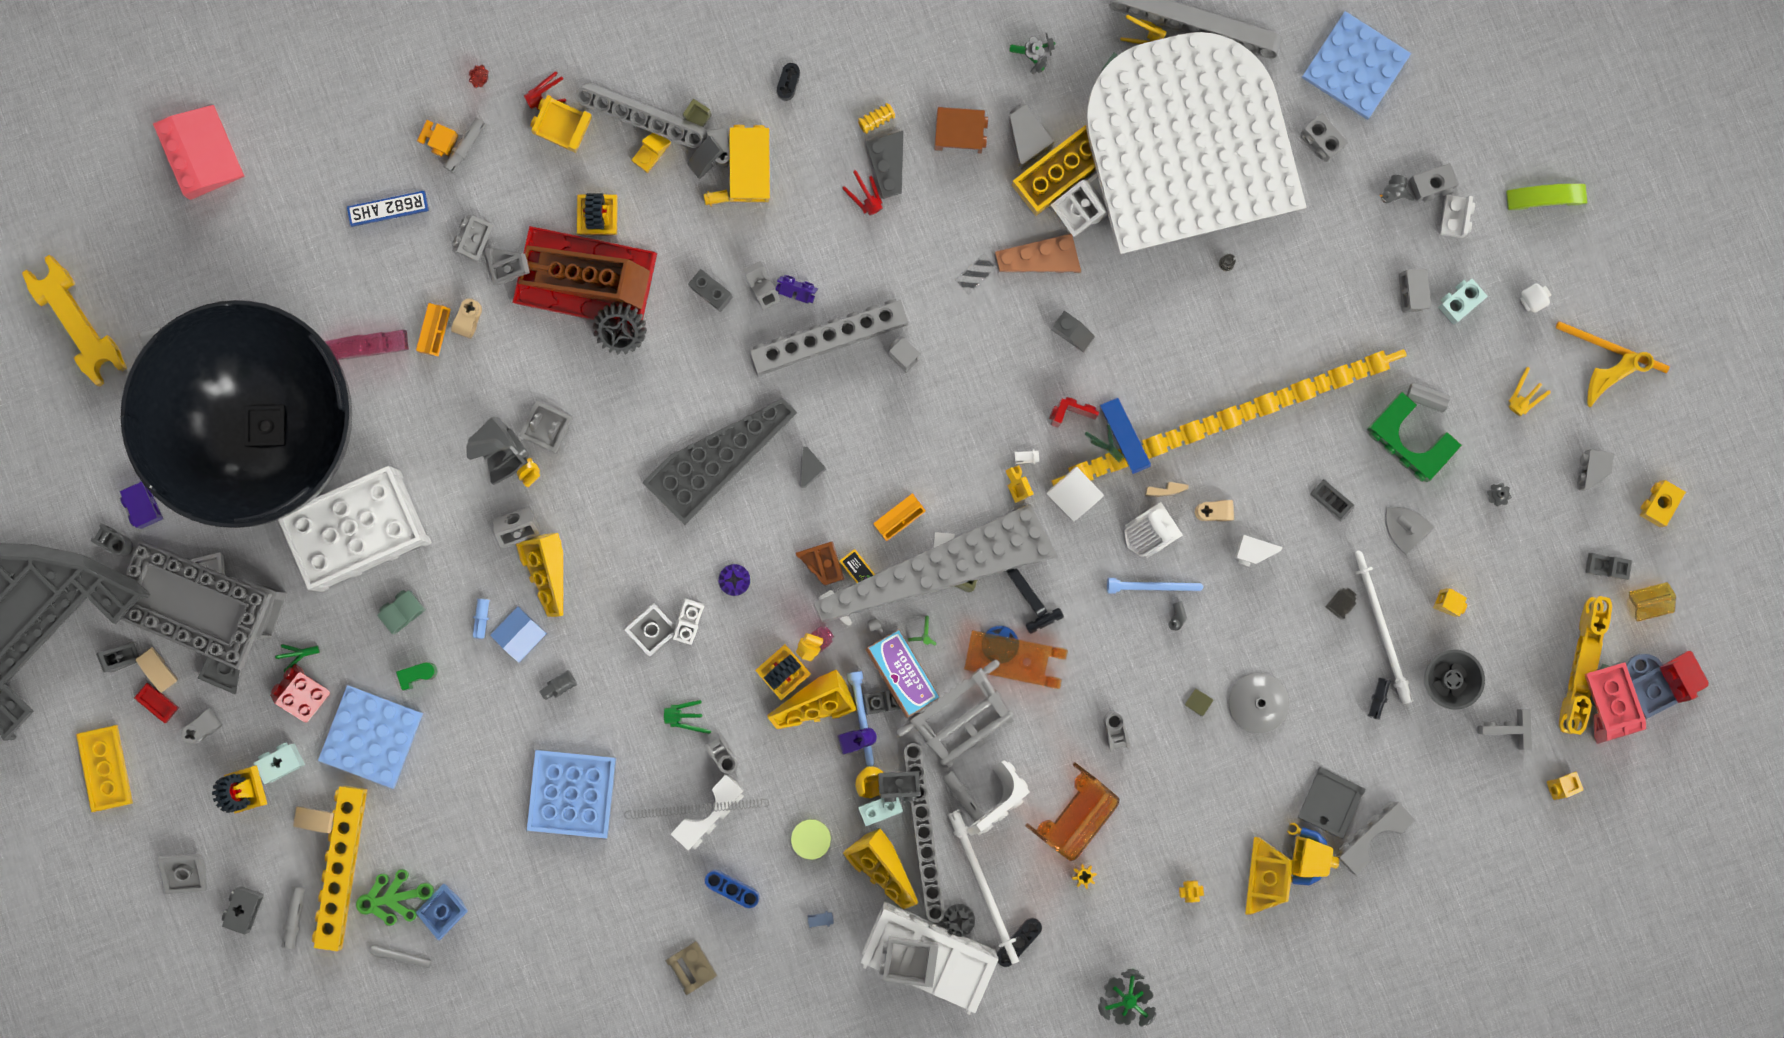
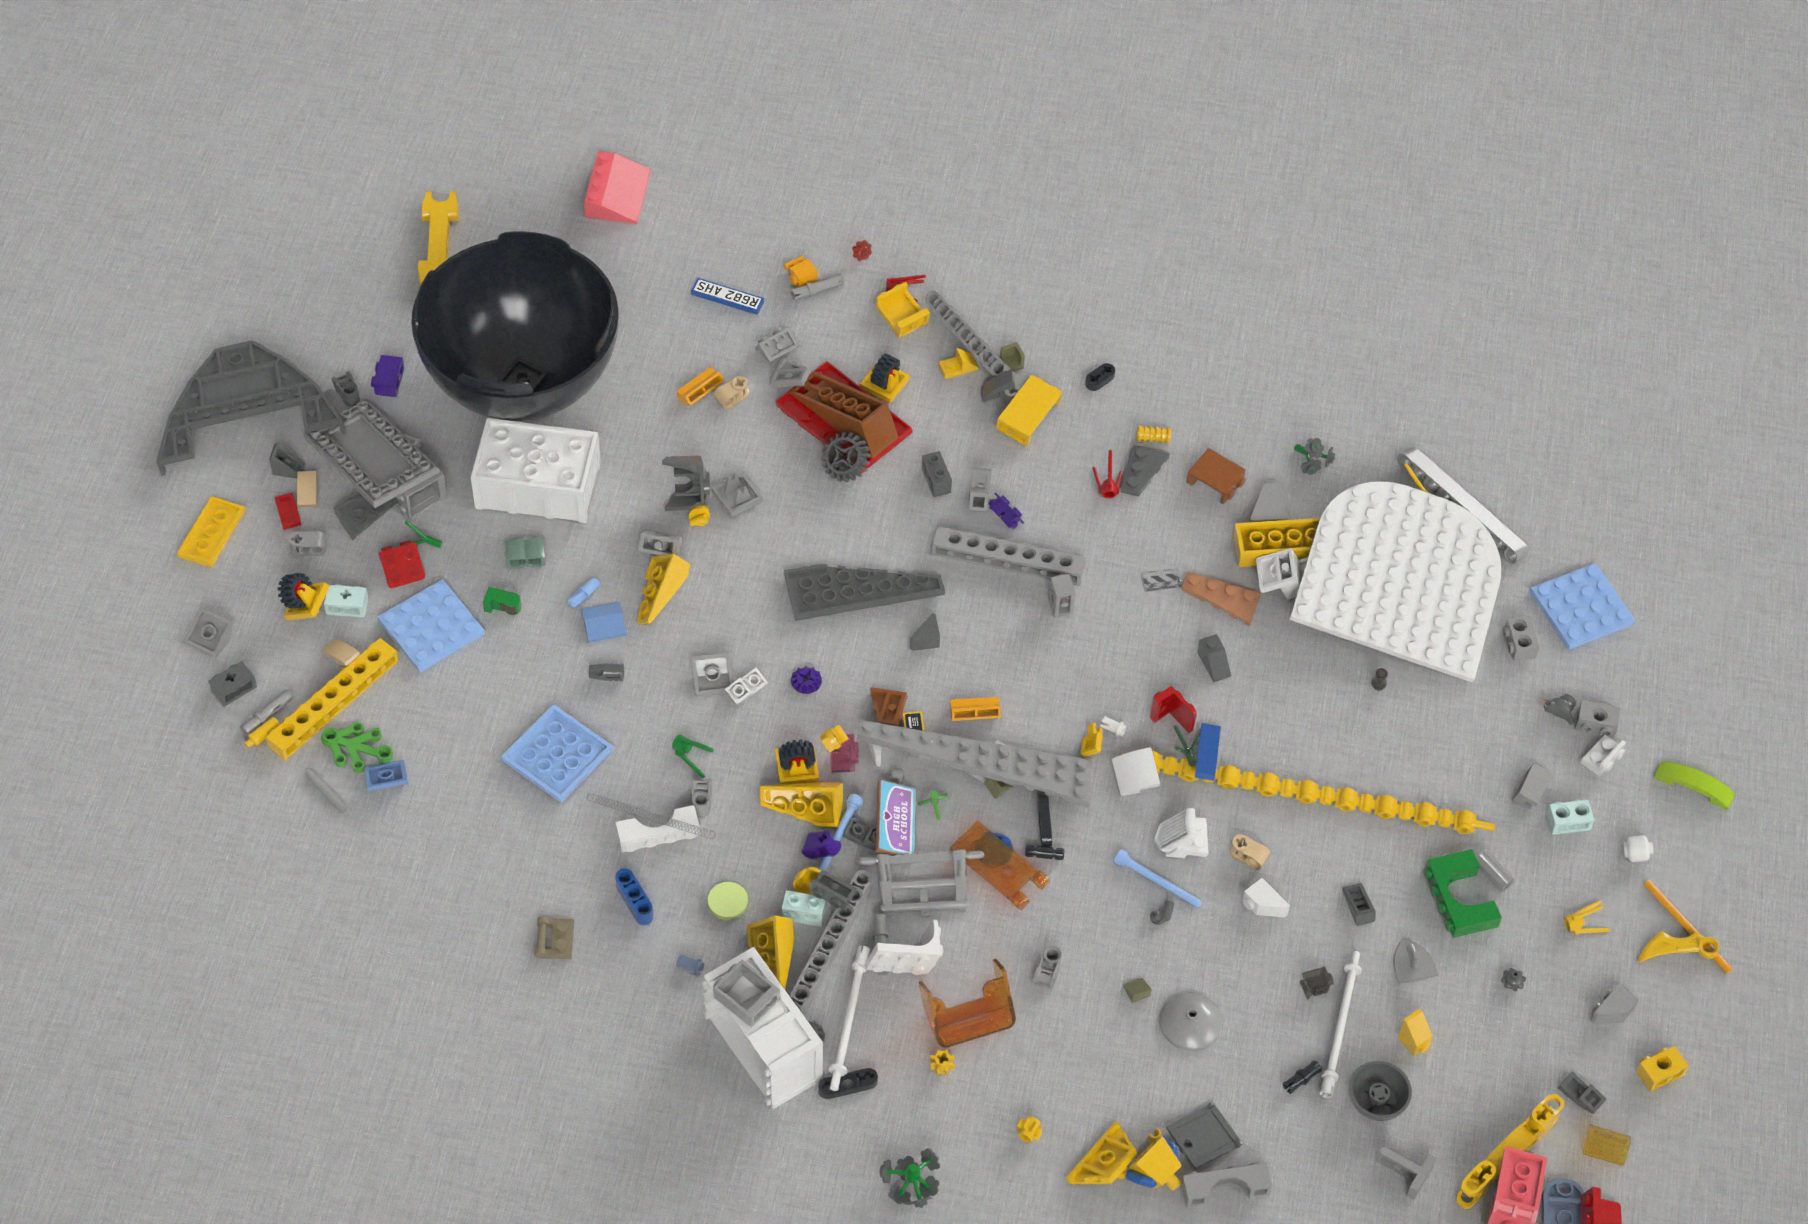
camera: 30 degrees right, 30 degrees down
(304, 938) = (259, 735): none -> yellow cylinder
(369, 345) = (640, 370): clear pink slope -> none
(716, 197) = (986, 418): yellow pin -> none
(1171, 489) = (1221, 815): tan slope -> none

